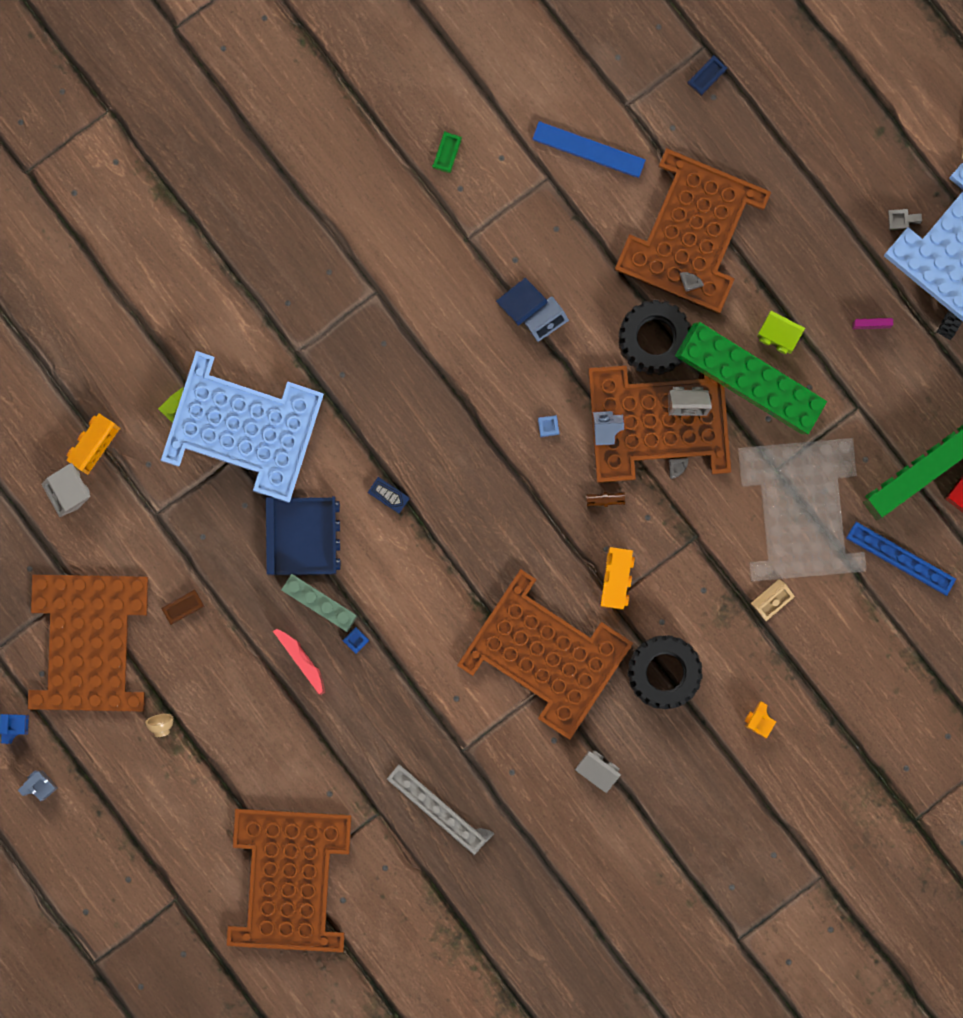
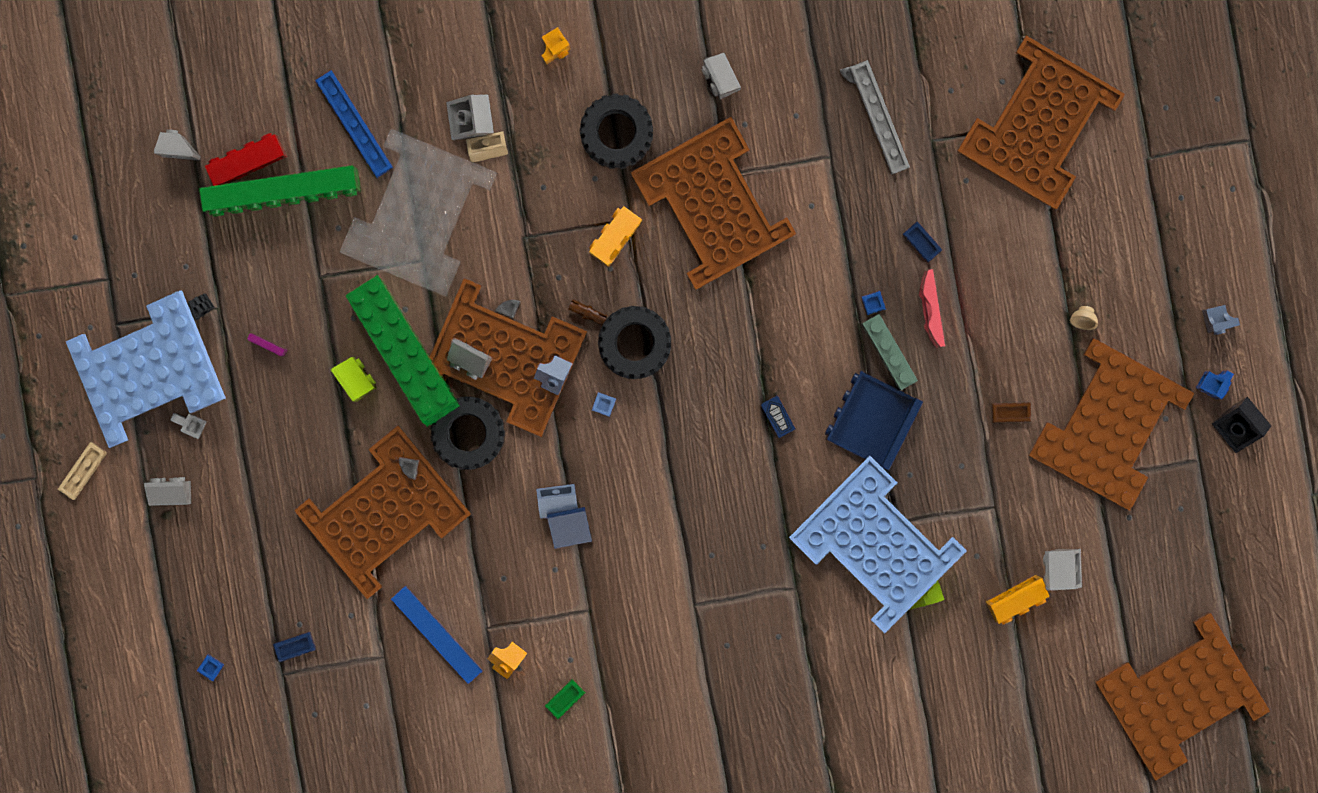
camera: 150 degrees left, 5 degrees up
(340, 717) = (922, 242): none -> dark blue tile
(515, 159) = (506, 659): none -> light orange brick
(550, 467) = (608, 342): none -> black tyre
(770, 20) = (210, 667): none -> blue tile
(801, 617) = (470, 117): none -> light grey slope
(887, 151) = (170, 492): none -> light grey slope

